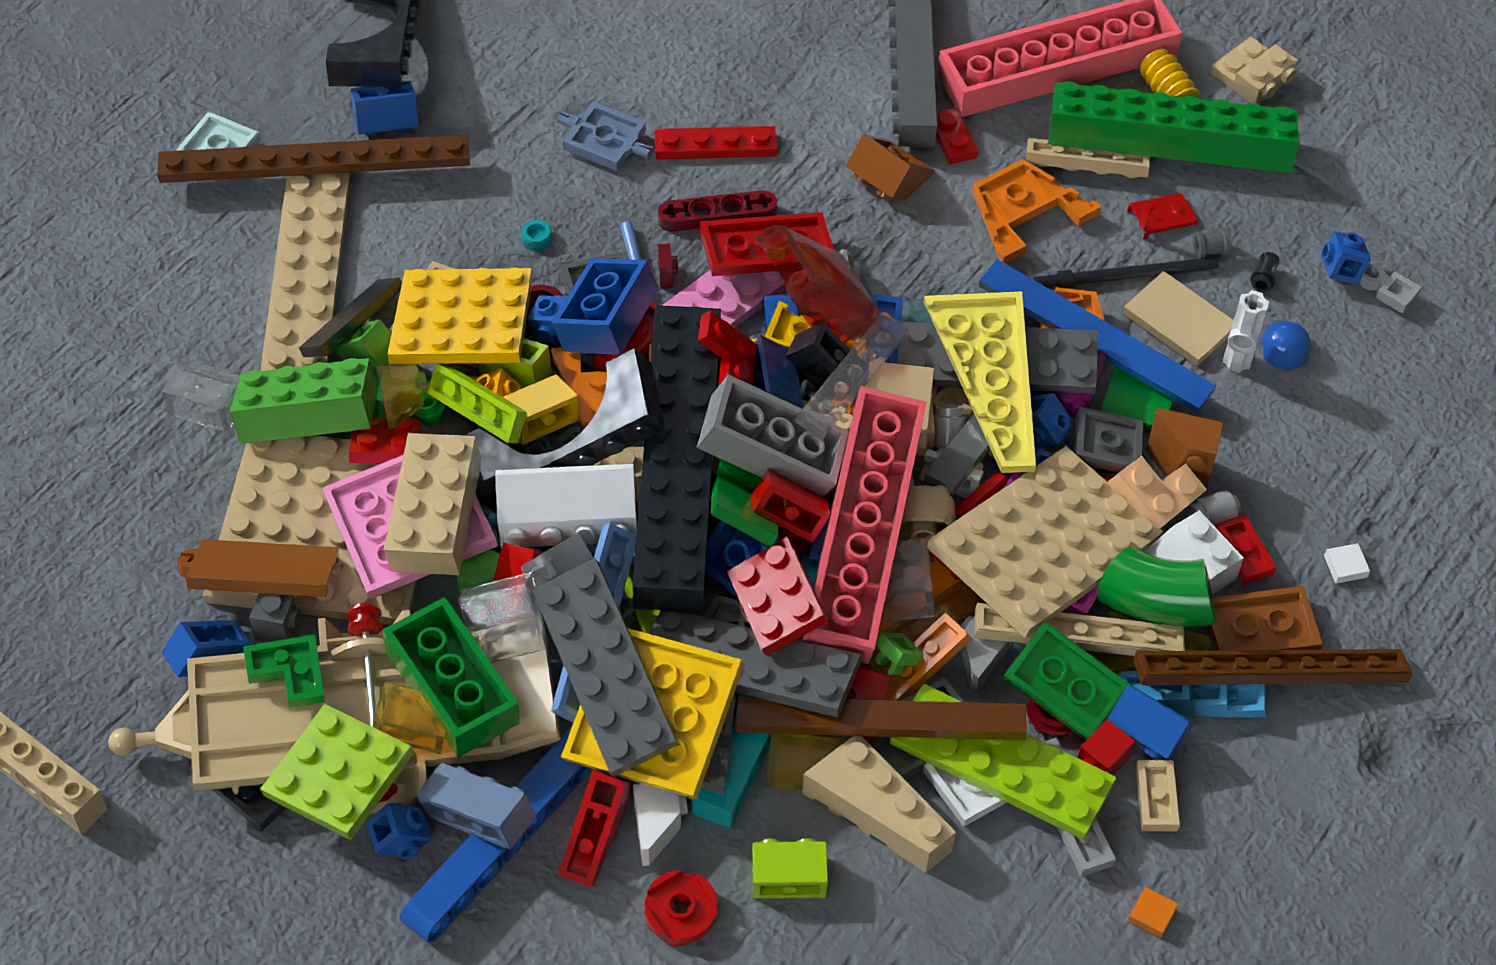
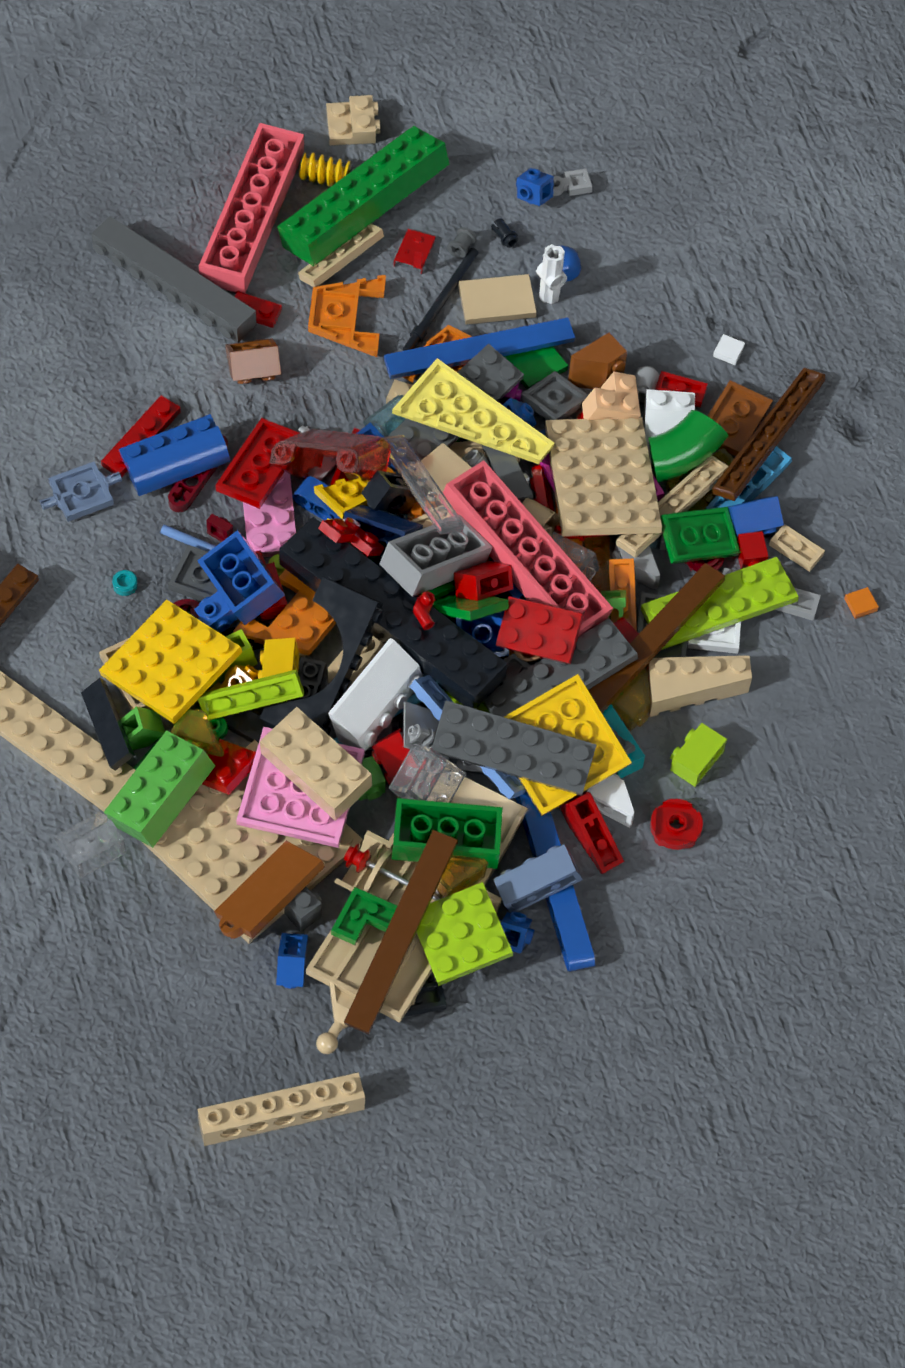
camera: 55 degrees left, 5 degrees up
(287, 709) = (400, 932): none -> reddish brown tile
(690, 466) = (422, 608): none -> red arm
(709, 173) = (175, 455): none -> blue brick

